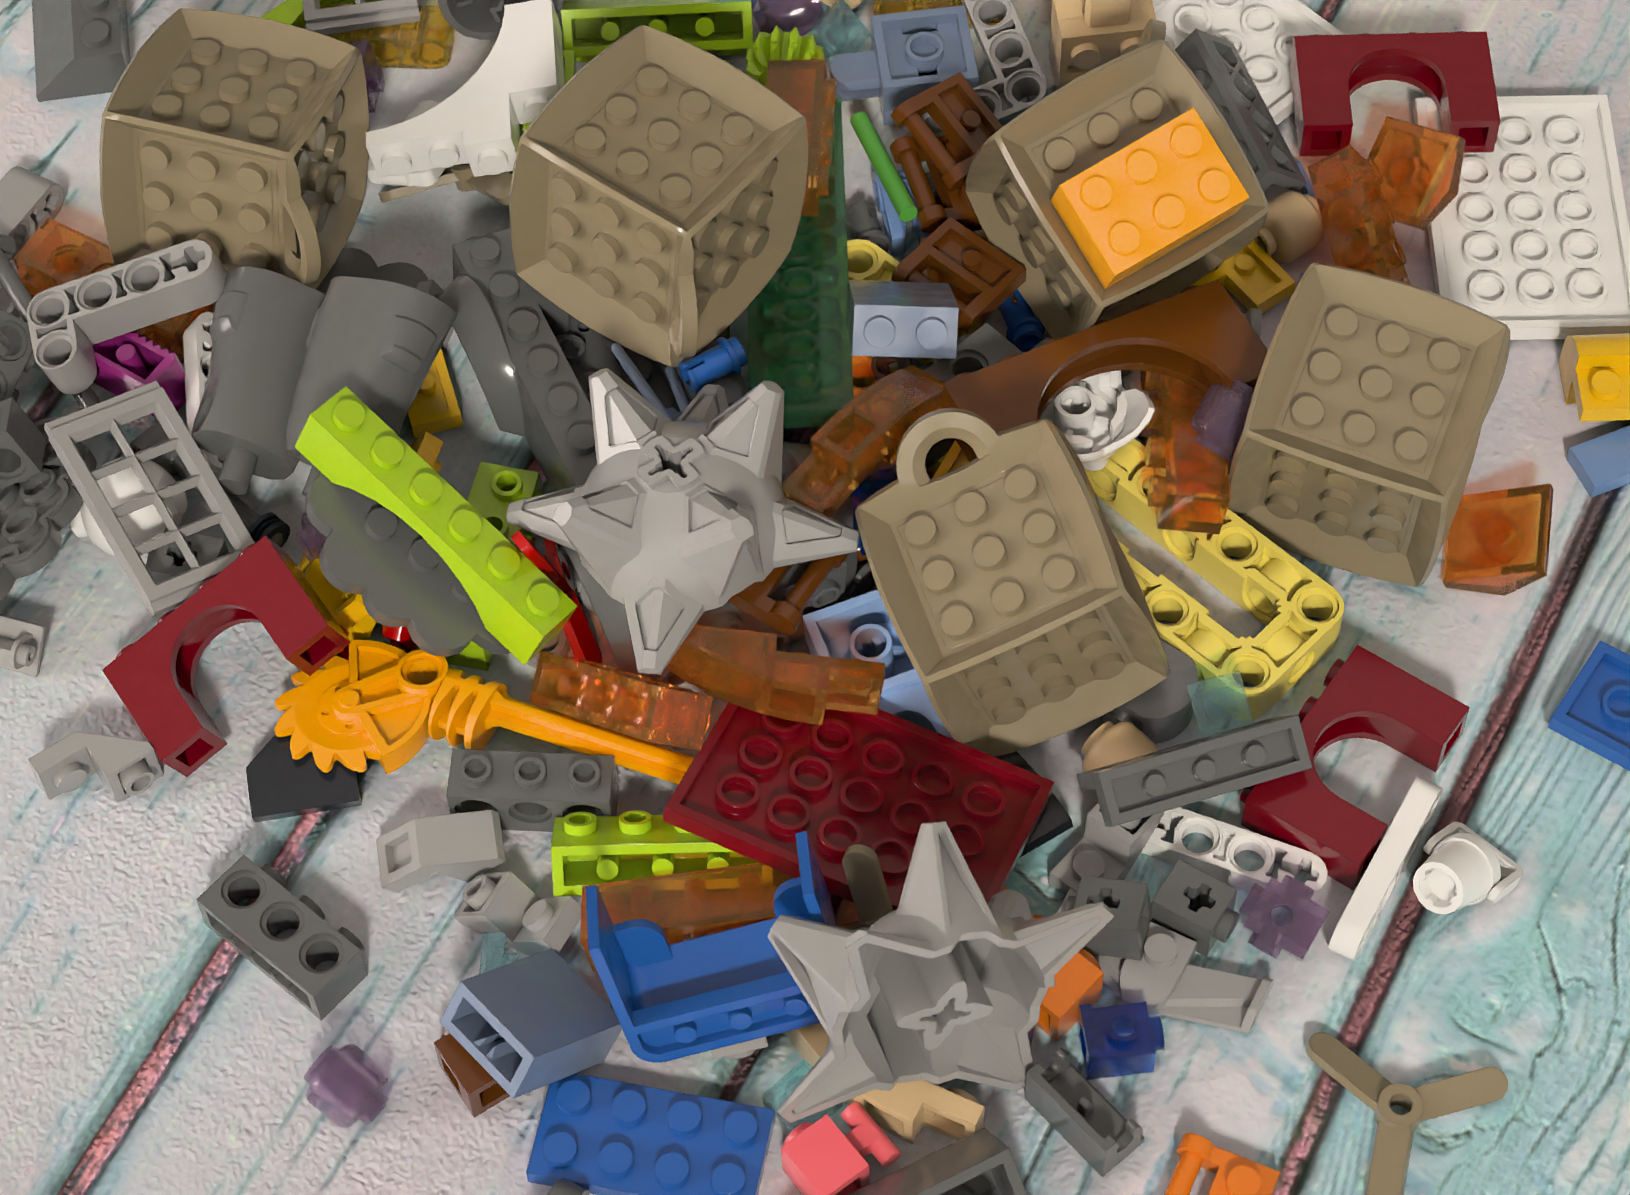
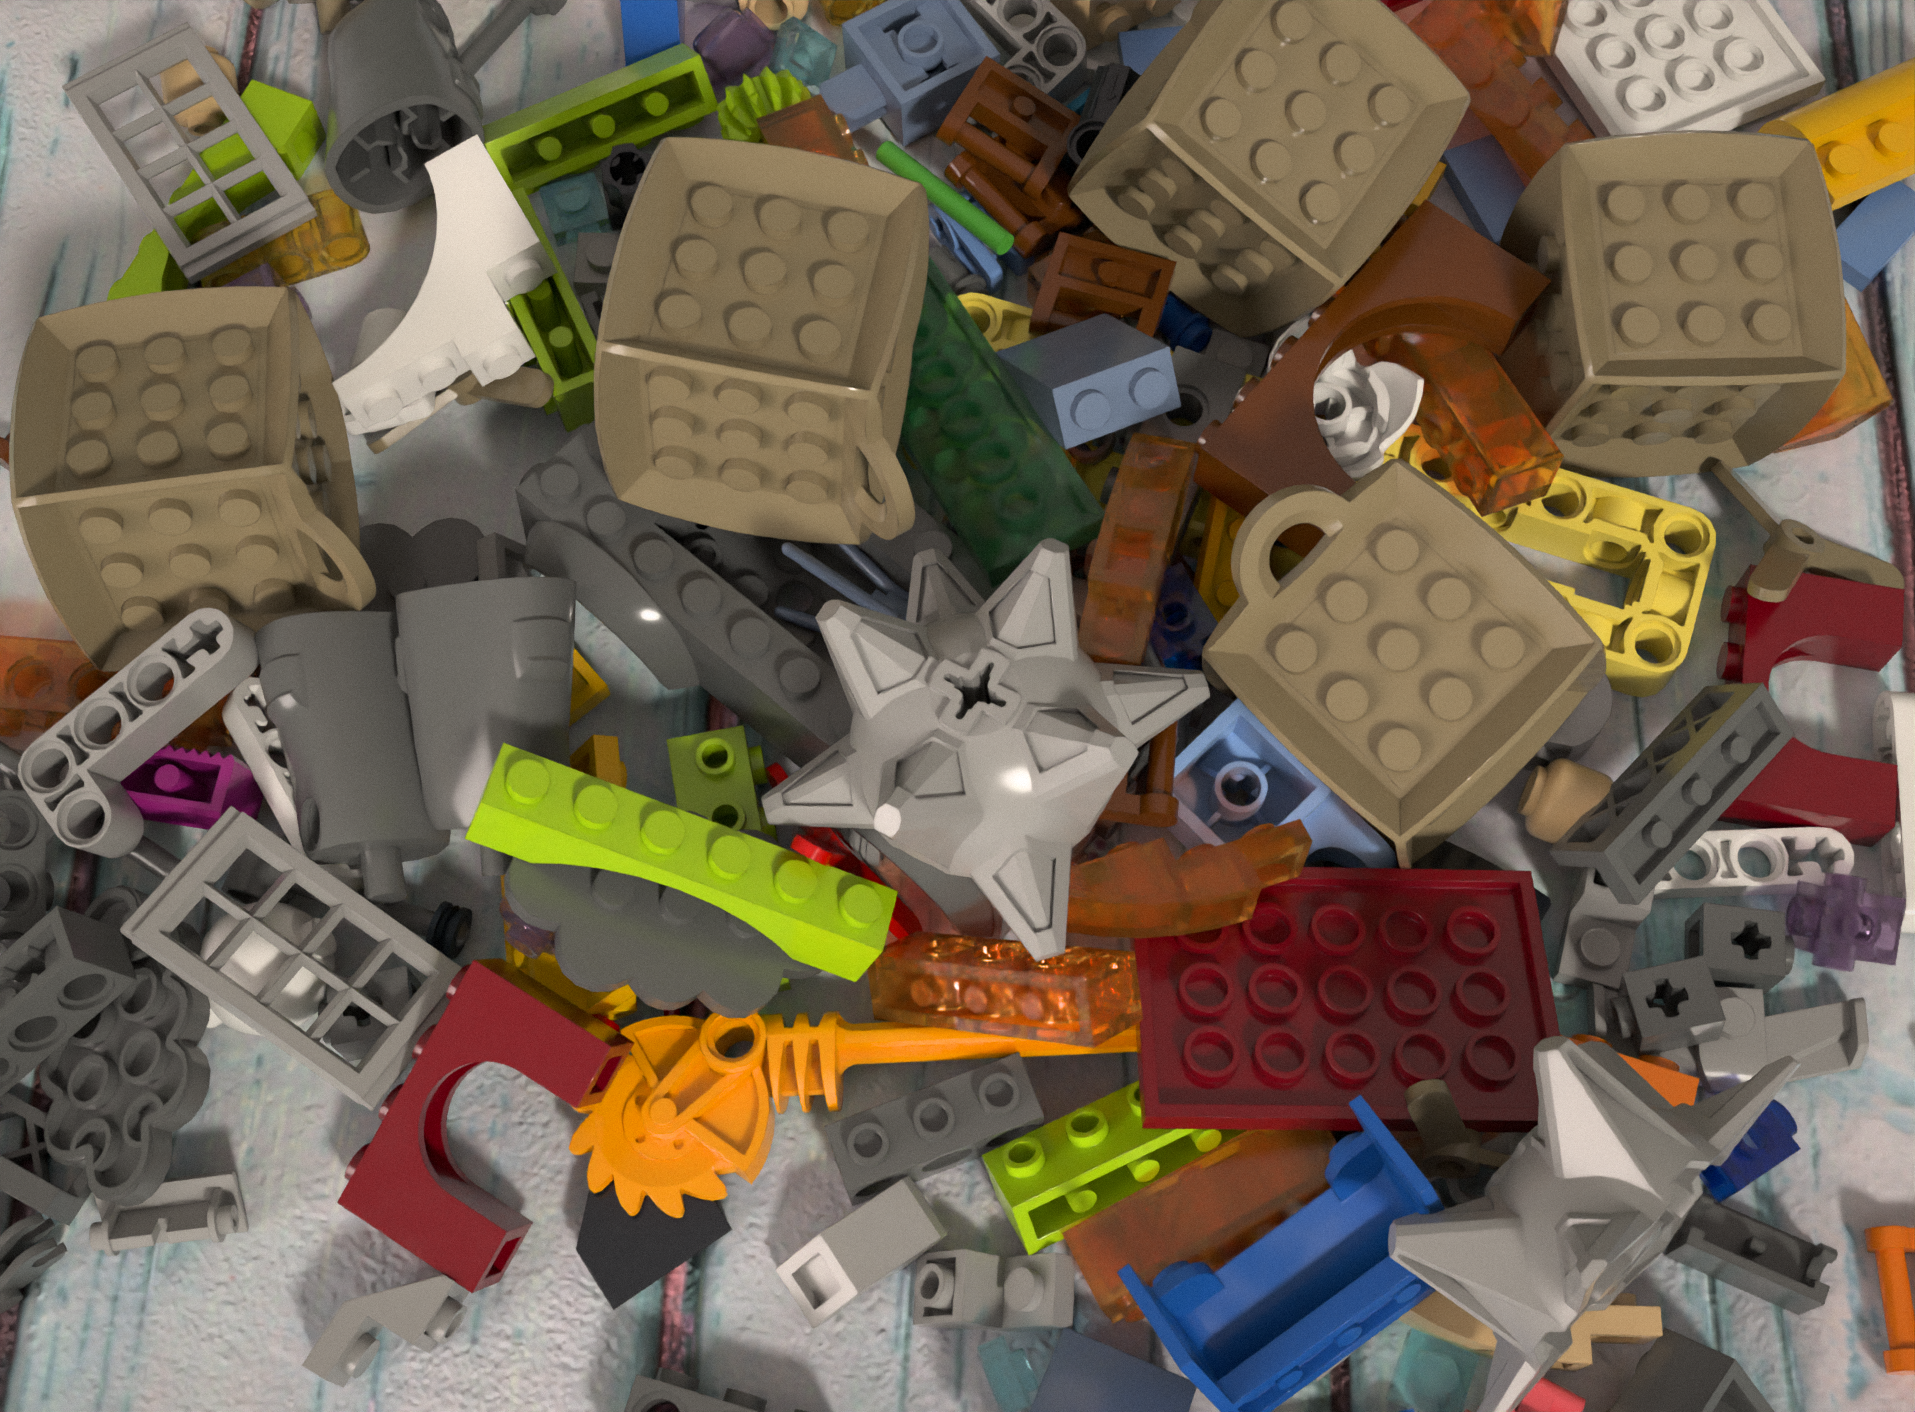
camera: 25 degrees left, 10 degrees up
(713, 364) = (927, 505): blue pin -> none
(1149, 198) = (1356, 135): light orange brick -> none
(1220, 703) = (1651, 696): clear light blue plate -> none
(1222, 417) = (1528, 362): head -> none
(1411, 653) = (1799, 549): none -> dark tan piece

